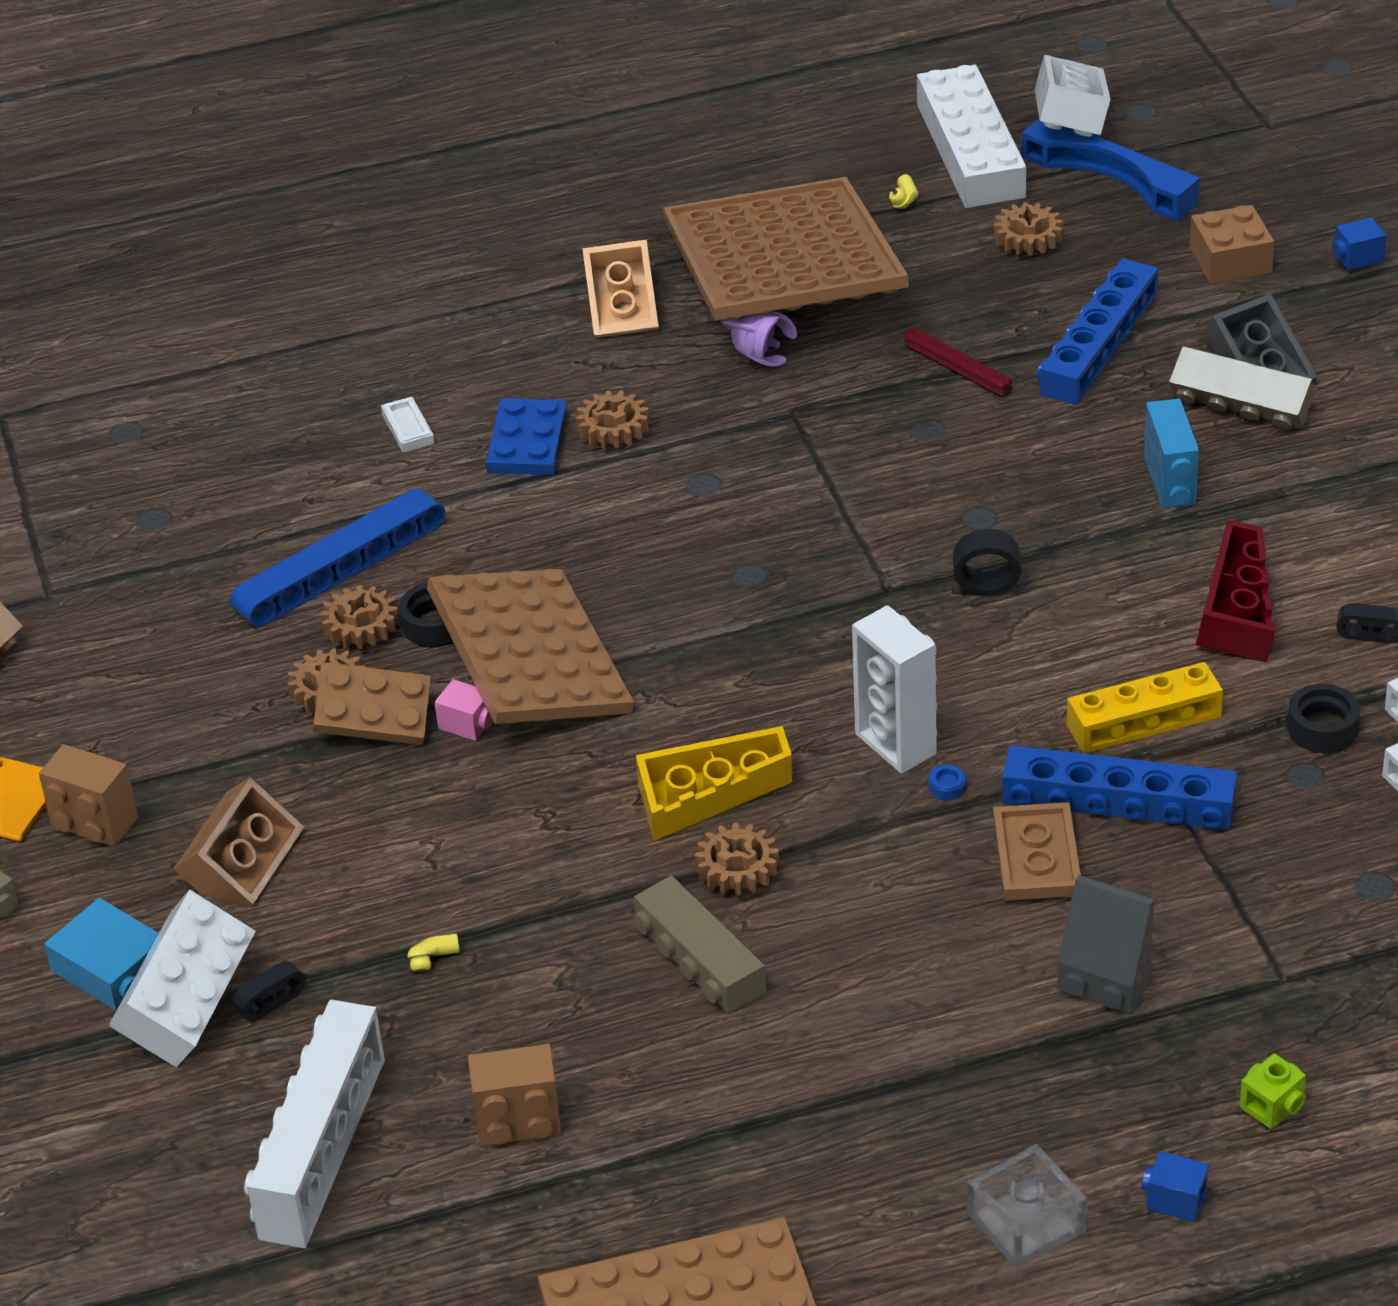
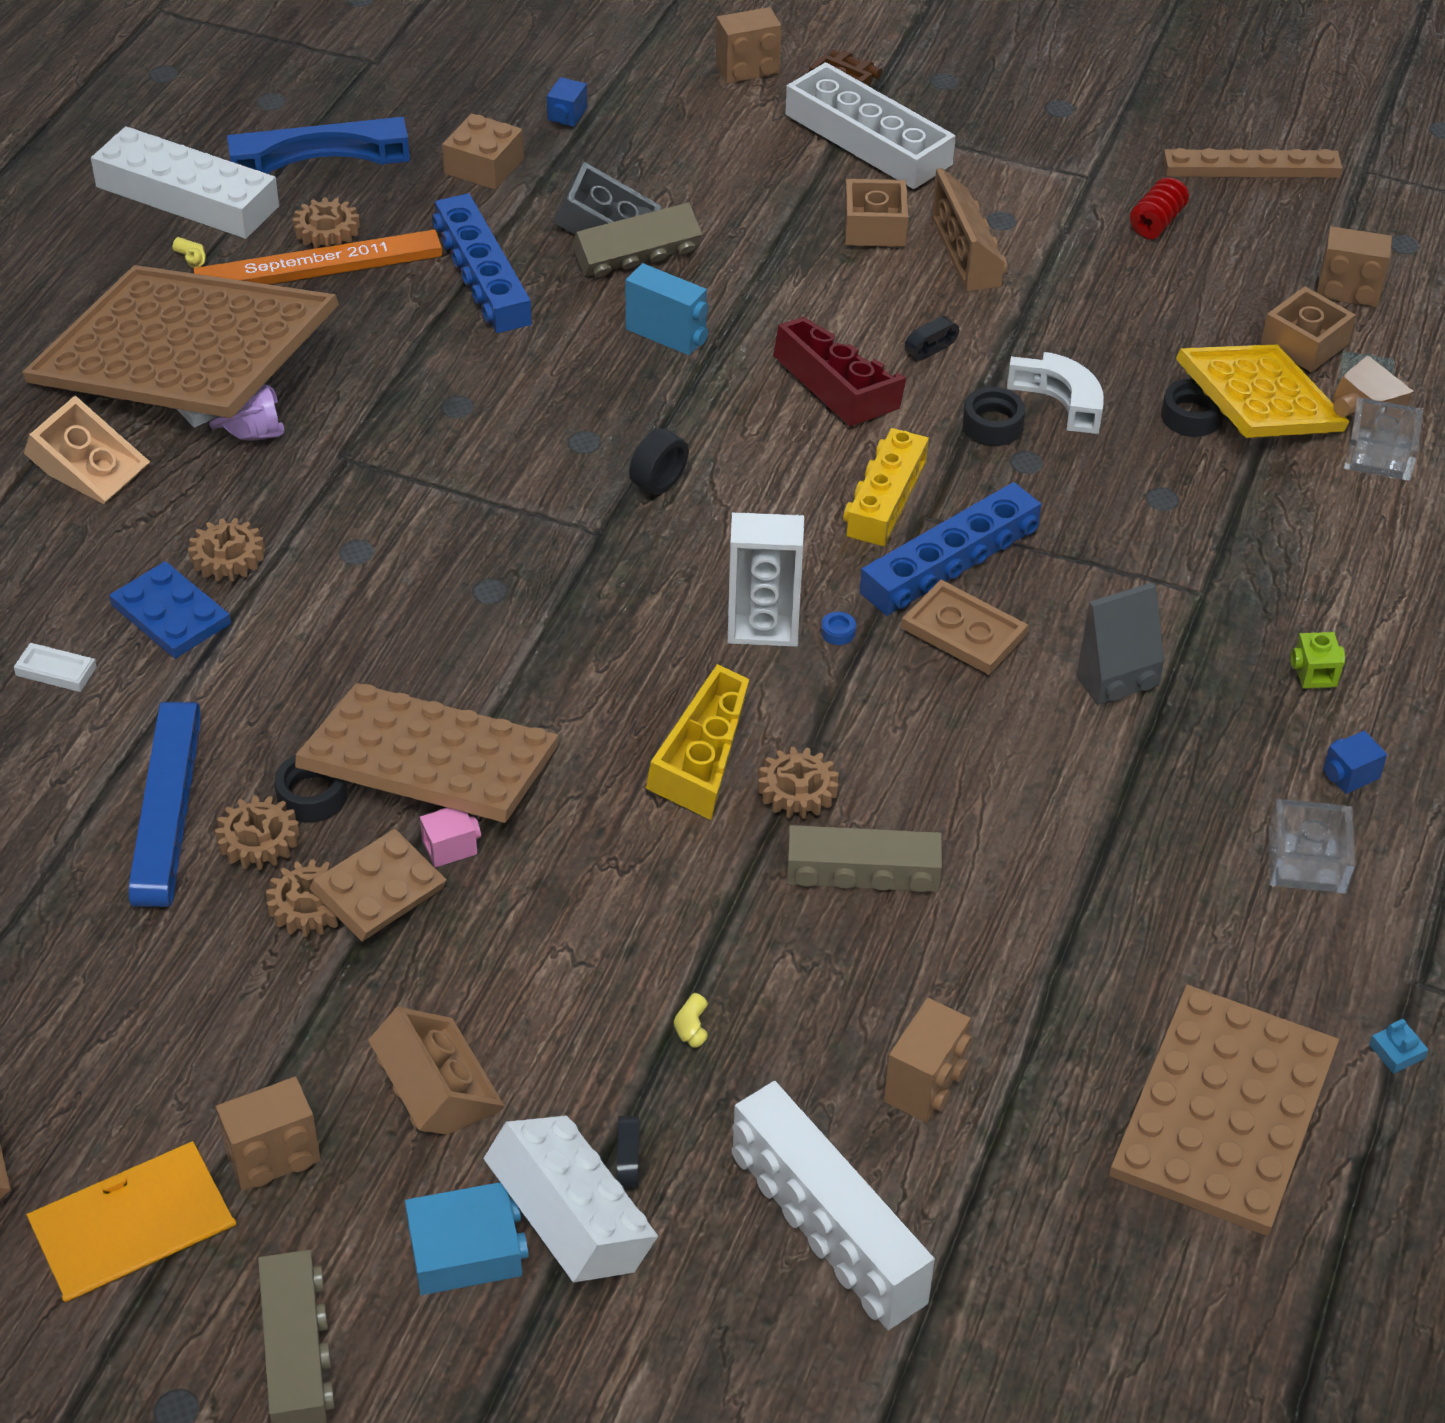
camera: 55 degrees left, 5 degrees up
(958, 361) = (412, 345): dark red axle -> none
(986, 256) = (330, 259): none -> orange tile
(1072, 96) = (237, 108): white brick -> none

